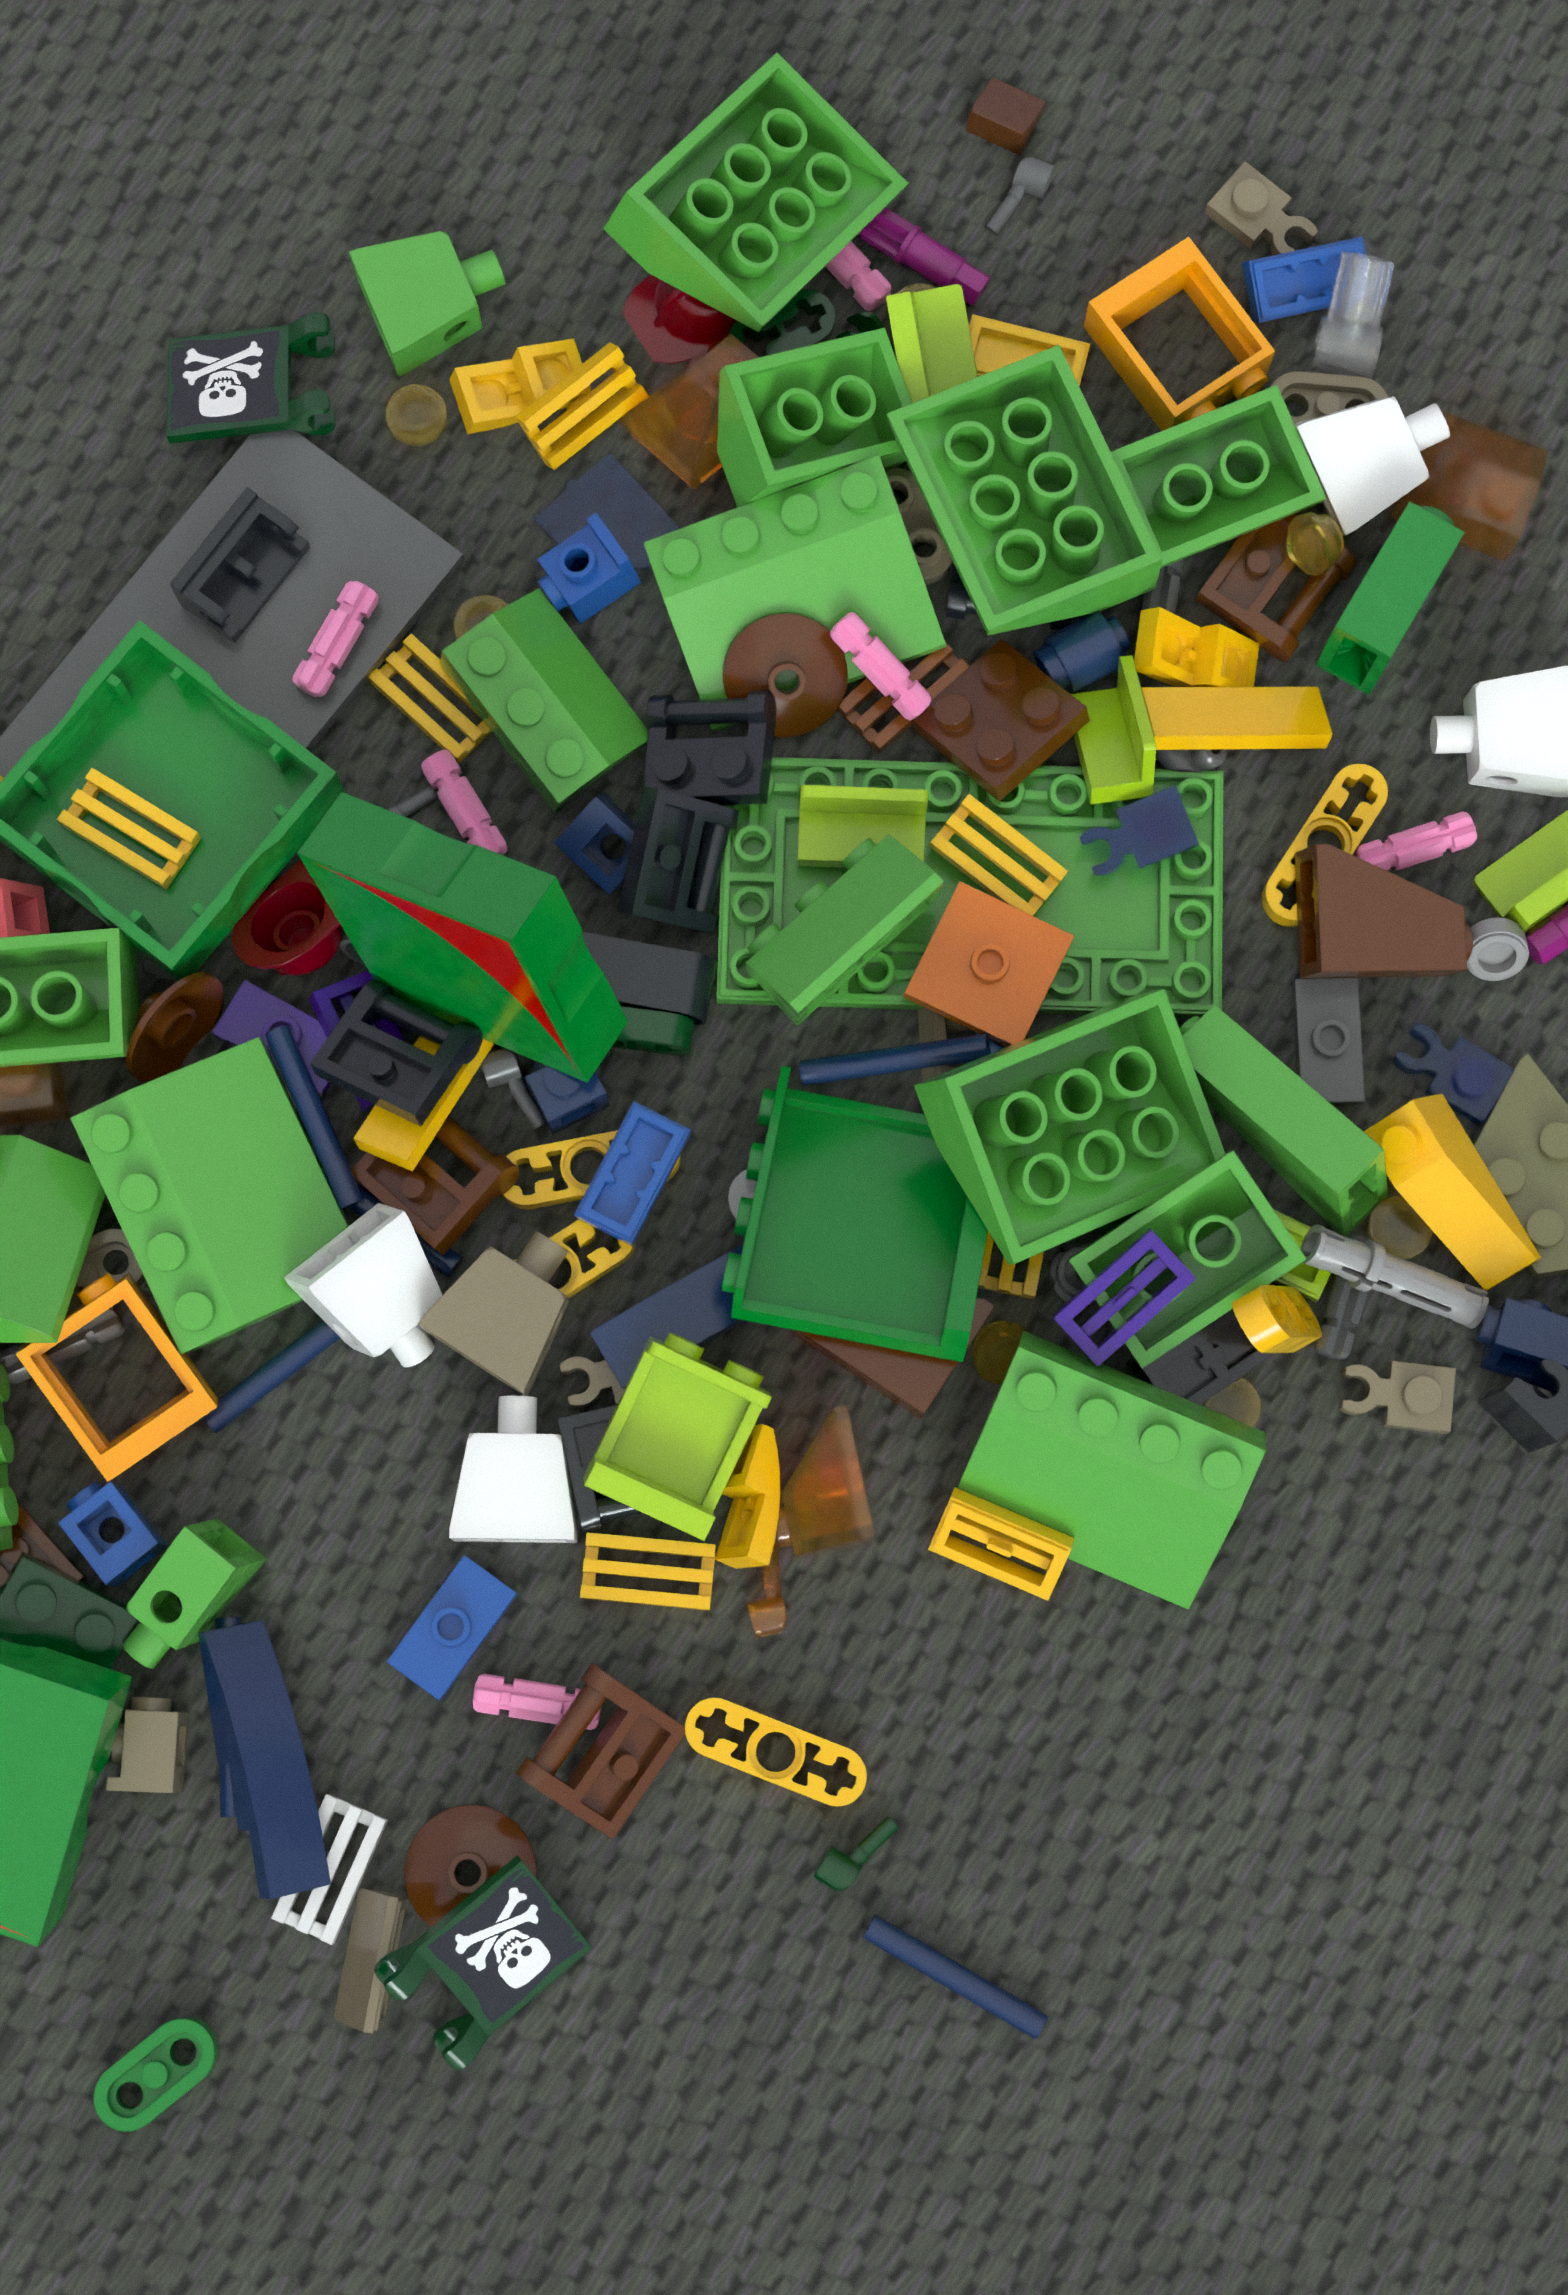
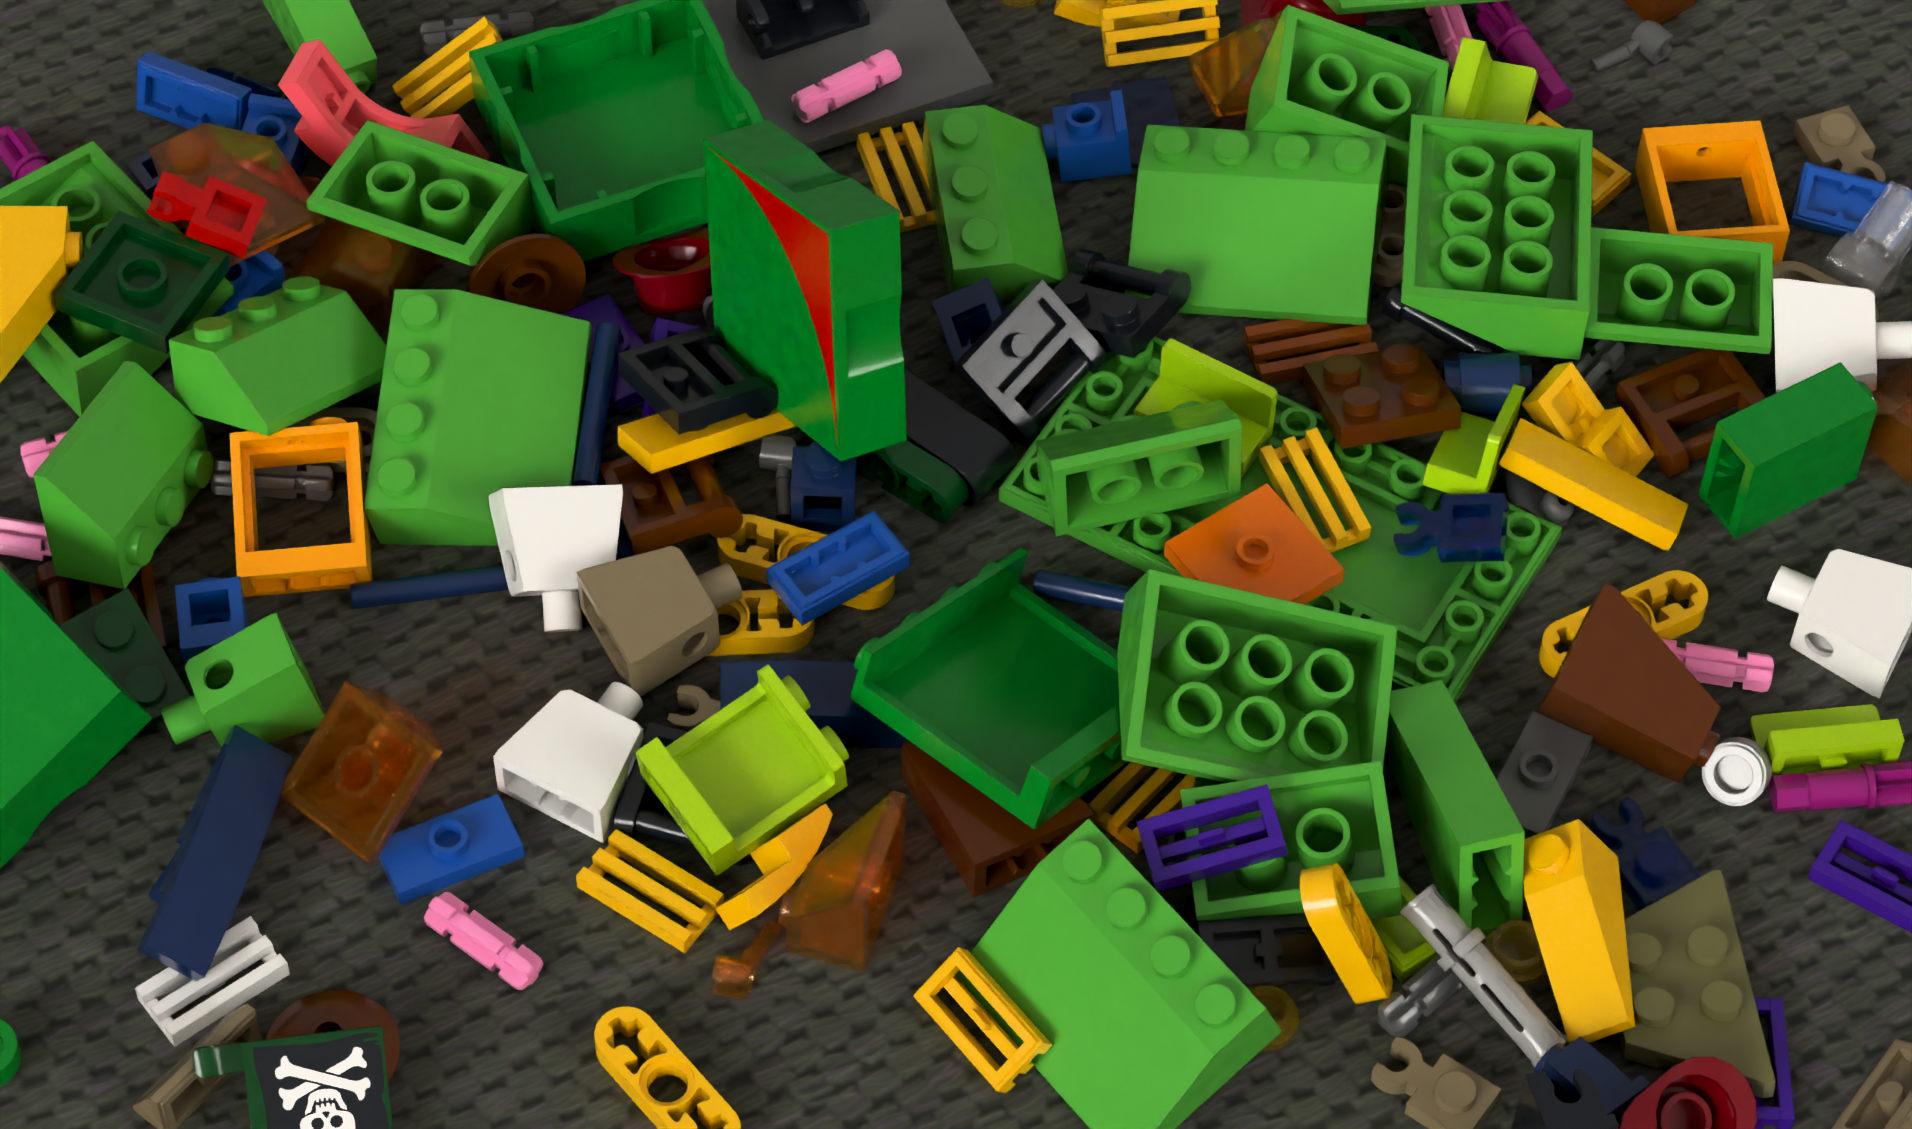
camera: 30 degrees right, 25 degrees down
(85, 801) = (569, 103): yellow tile -> none
(150, 1748) = (126, 804): dark tan brick -> none
(344, 1606) = (362, 769): none -> clear orange slope
(619, 1761) = (519, 1018): reddish brown plate -> none
(793, 644) = (1242, 284): reddish brown dish -> none
(880, 666) = (1297, 303): bright pink axle -> none
(1314, 542) = (1742, 379): clear yellow plate -> none

